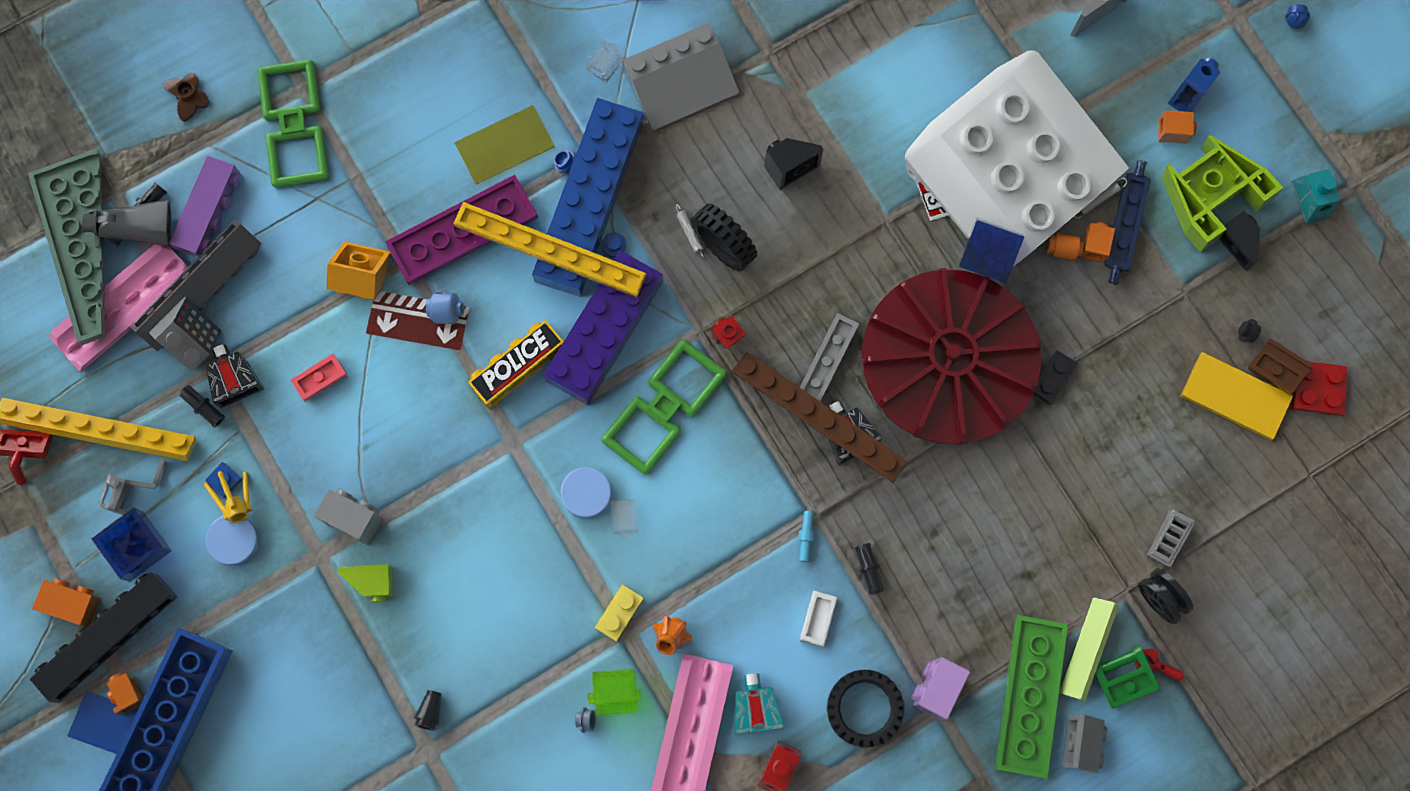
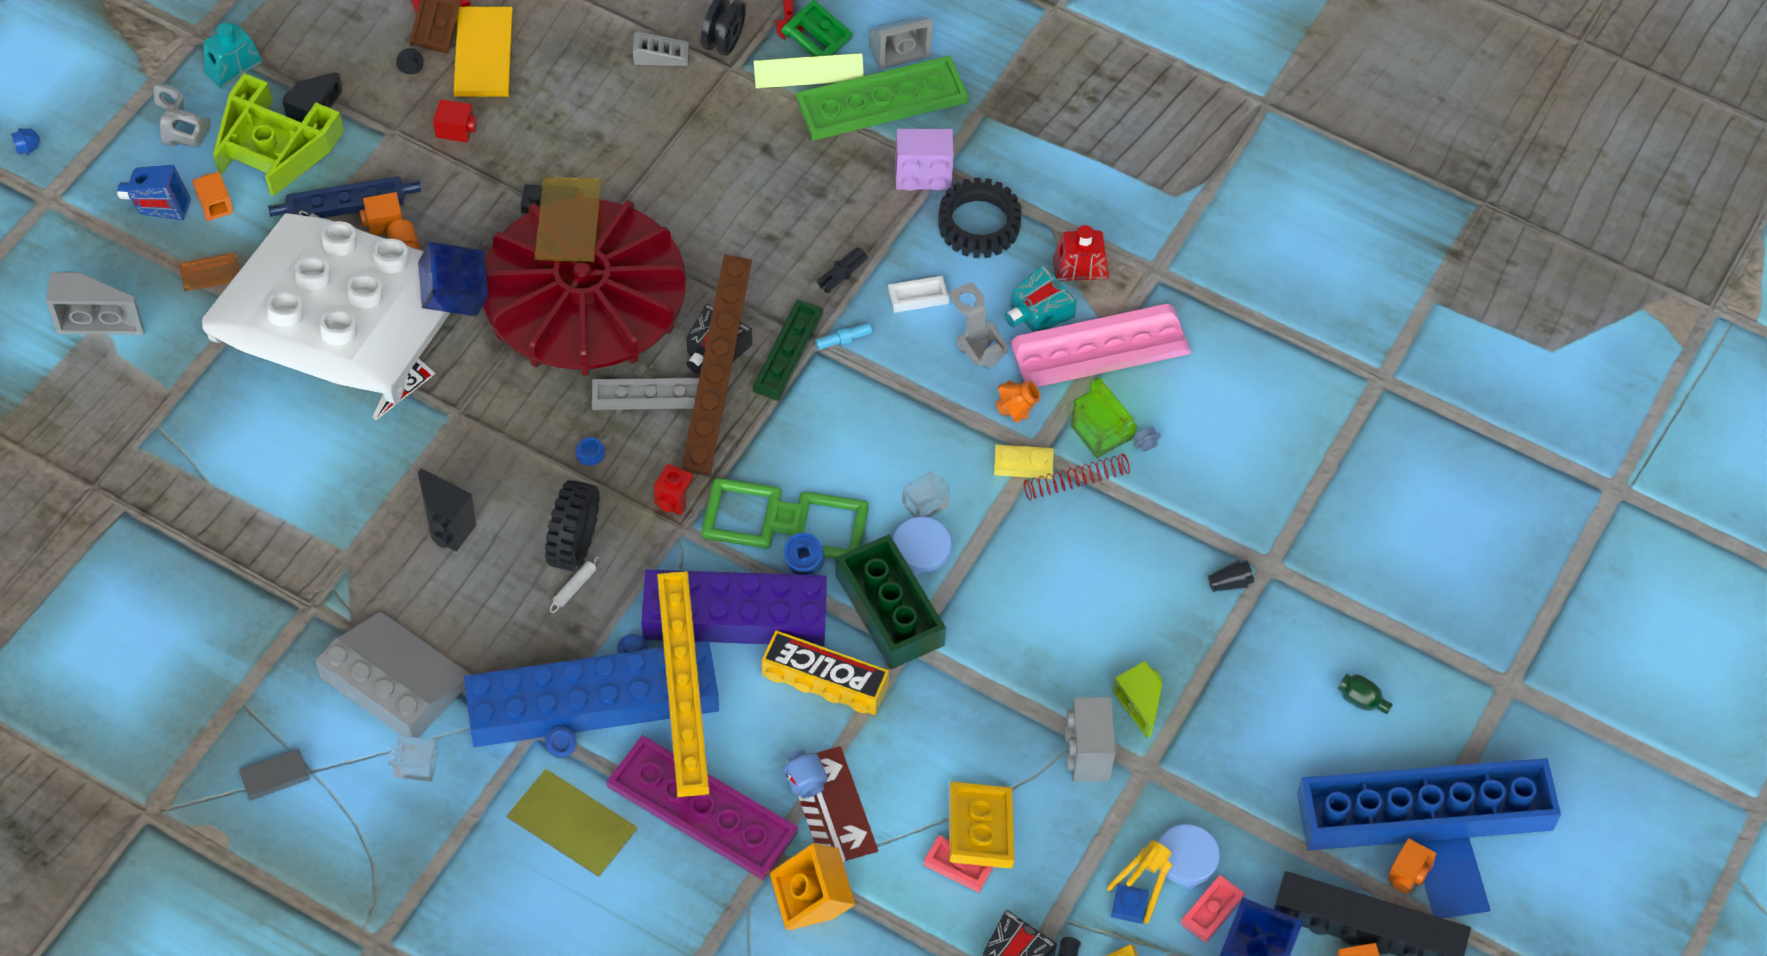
camera: 120 degrees left, 20 degrees down
(182, 533) = (1212, 909): none -> coral plate
(278, 750) = (1363, 693): none -> dark green plant
(333, 404) = (981, 825): none -> yellow plate
(544, 438) = (890, 601): none -> dark green brick
(578, 689) = (1076, 477): none -> red piece
(617, 395) = (804, 554): none -> blue wheel
(749, 637) = (978, 333): none -> light grey piece
(798, 295) = (590, 451): none -> blue plate
(817, 488) = (788, 350): none -> dark green tile
(1008, 364) = (568, 219): none -> clear yellow piece
(1105, 99) = (209, 271): none -> clear orange tile
(1168, 337) = (454, 121): none -> red brick
(1261, 121) = (174, 113): none -> light grey piece

